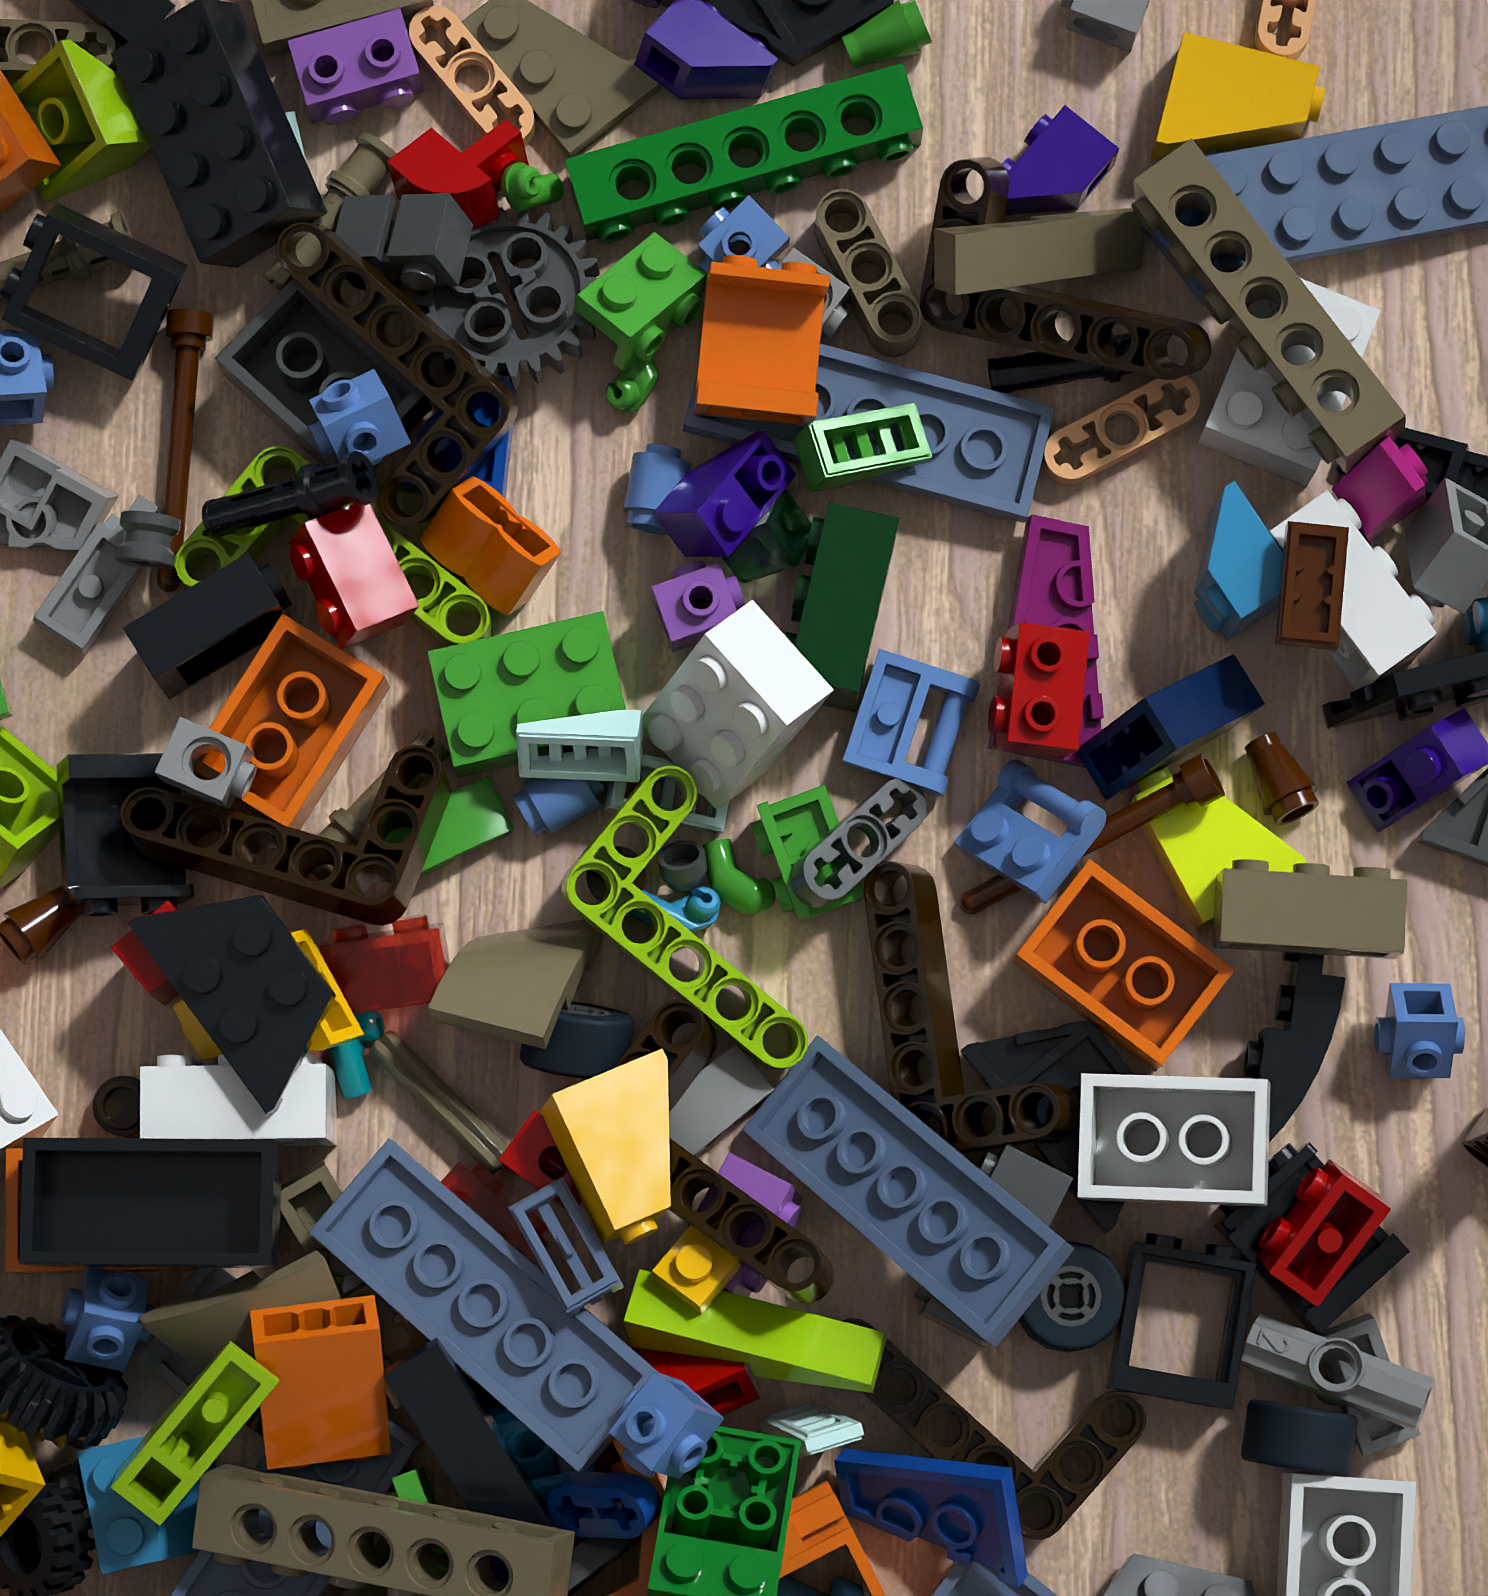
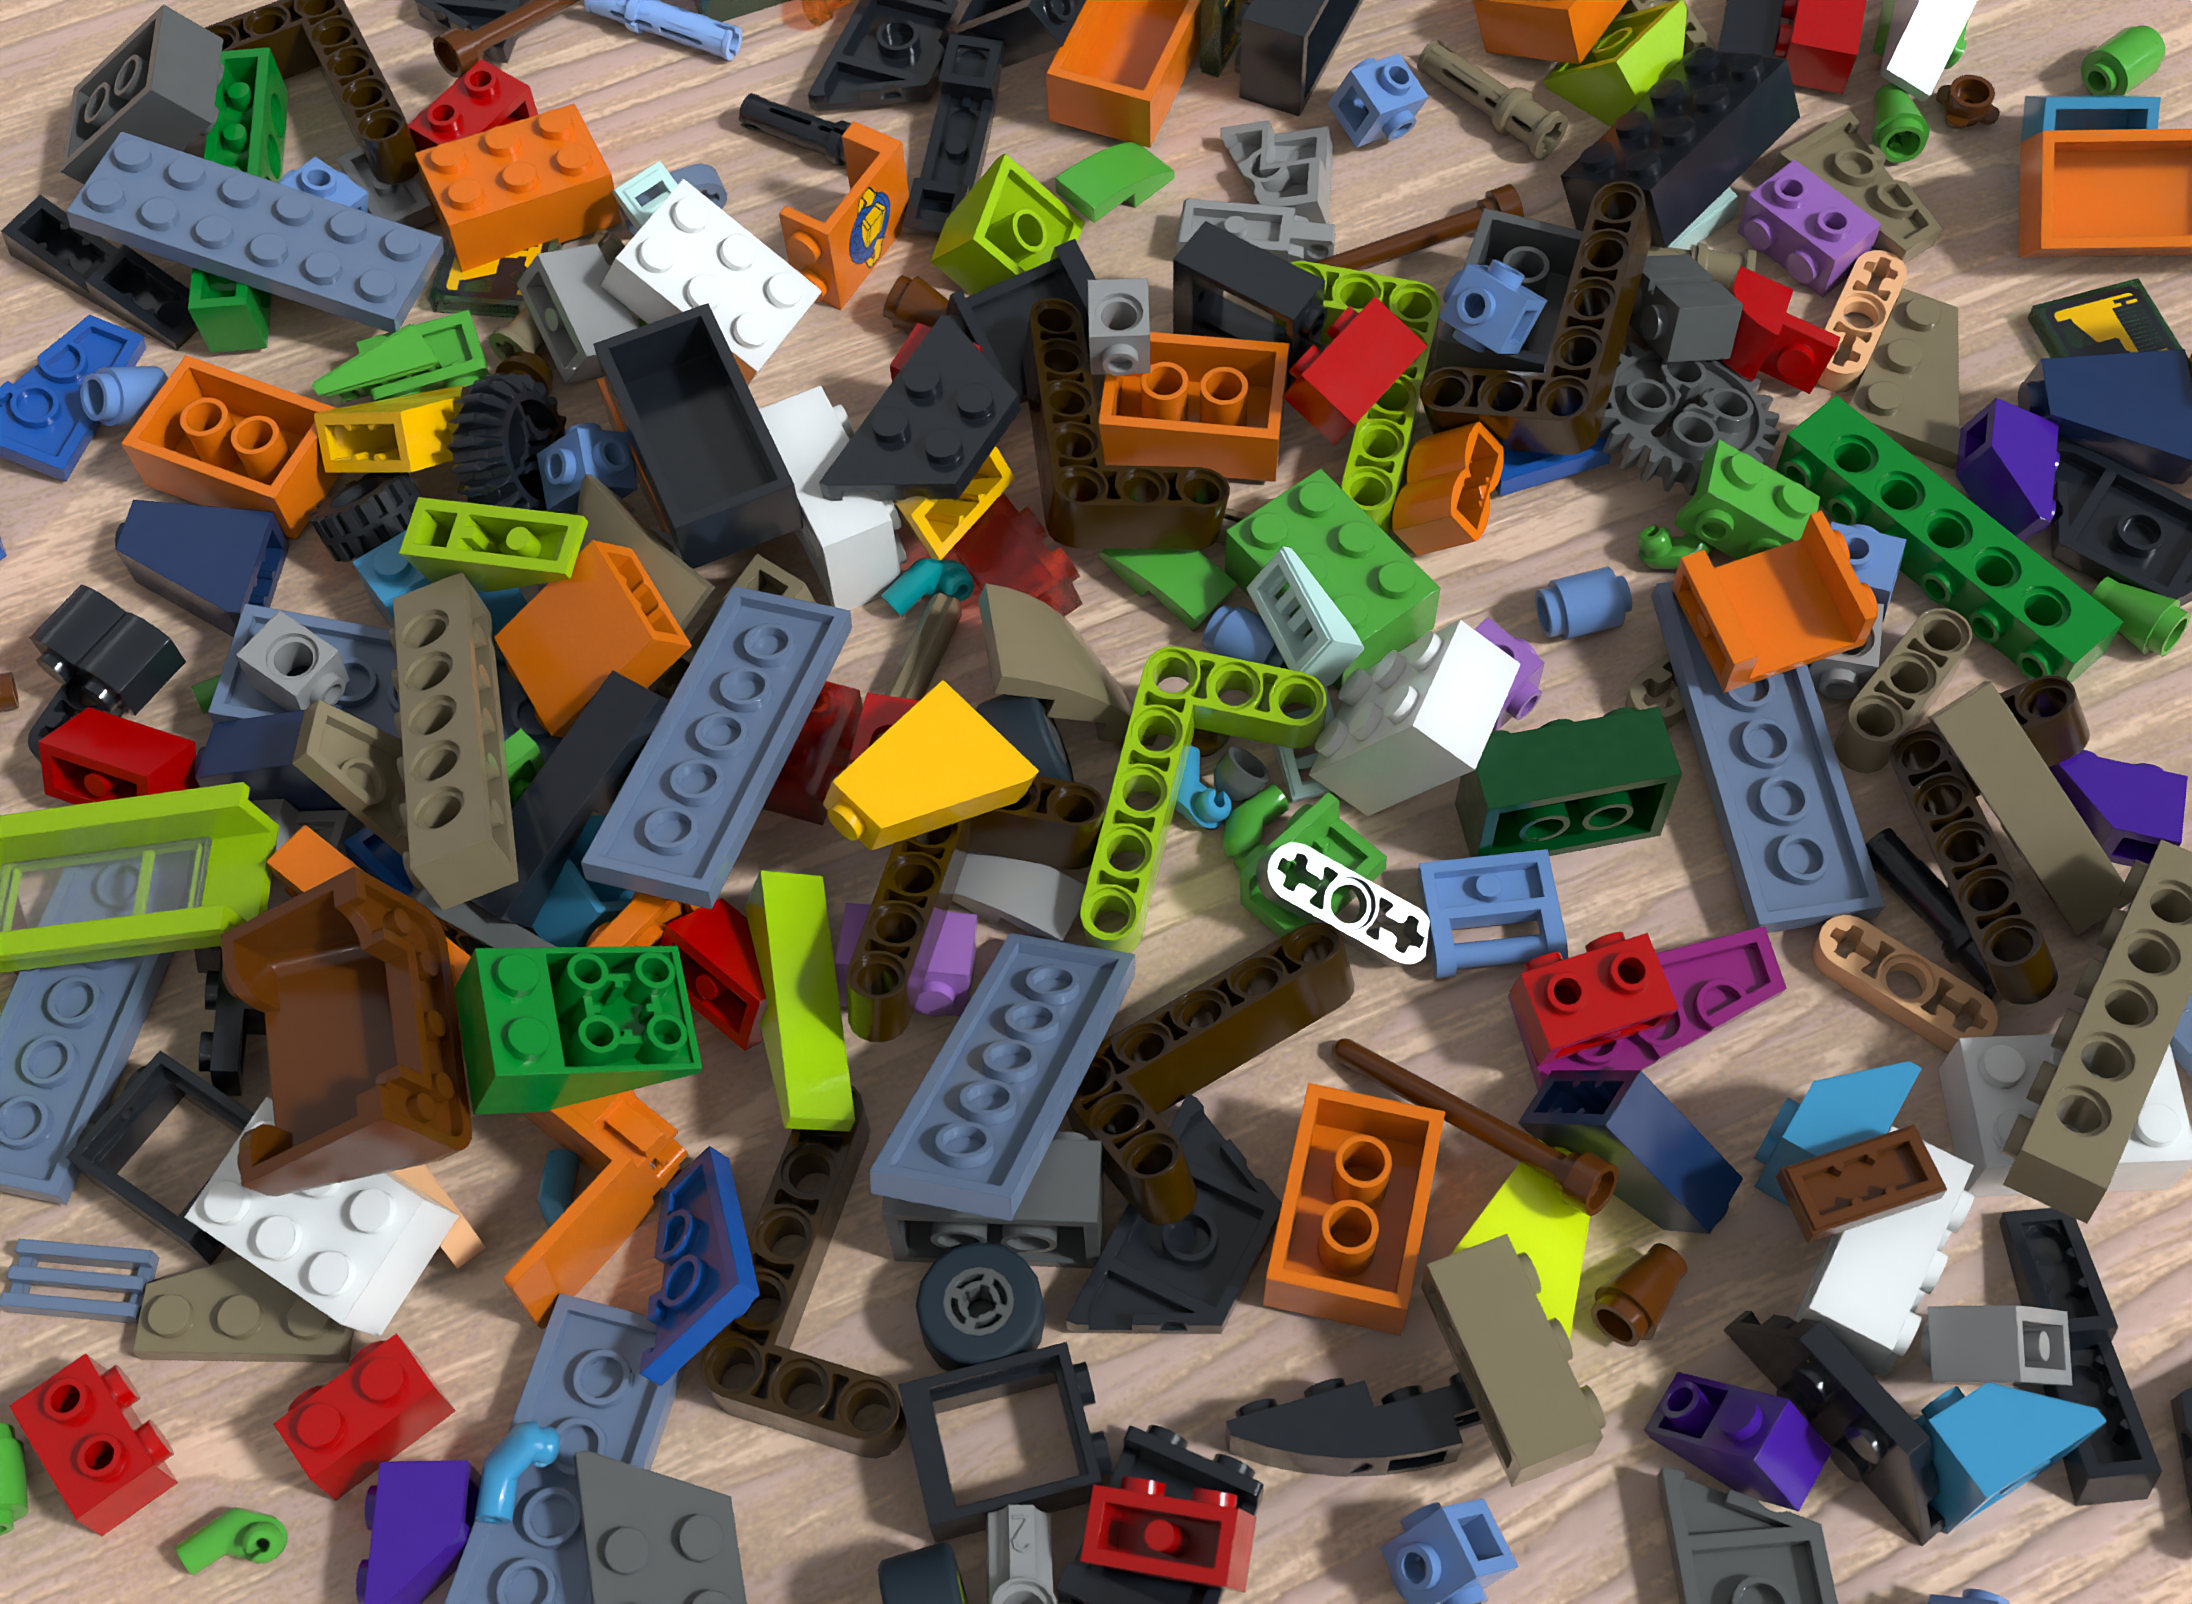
camera: 70 degrees right, 20 degrees down
(20, 285) = (1498, 161): black window -> none
(147, 540) = (1297, 231): dark grey wheel -> none
(311, 491) = (1408, 294): black pin -> none
(529, 189) = (1786, 383): bright green arm -> none
(590, 1291) = (813, 792): sand blue tile -> none
(605, 1517) = (563, 912): blue beam -> none
(665, 1427) = (654, 908): medium blue brick -> none
(696, 1269) = (836, 916): yellow plate -> none
(724, 497) = (1613, 647): dark purple slope -> none
(773, 543) = (1588, 695): clear green panel -> none
(815, 1426) = (724, 1108): light aqua slope -> none
(825, 453) = (1737, 709): bright green slope -> none
(1021, 848) = (1423, 1054): medium blue plate -> none
(1174, 1139) = (1192, 1322): white brick -> none
(1384, 487) = (2012, 1242): dark pink slope -> none

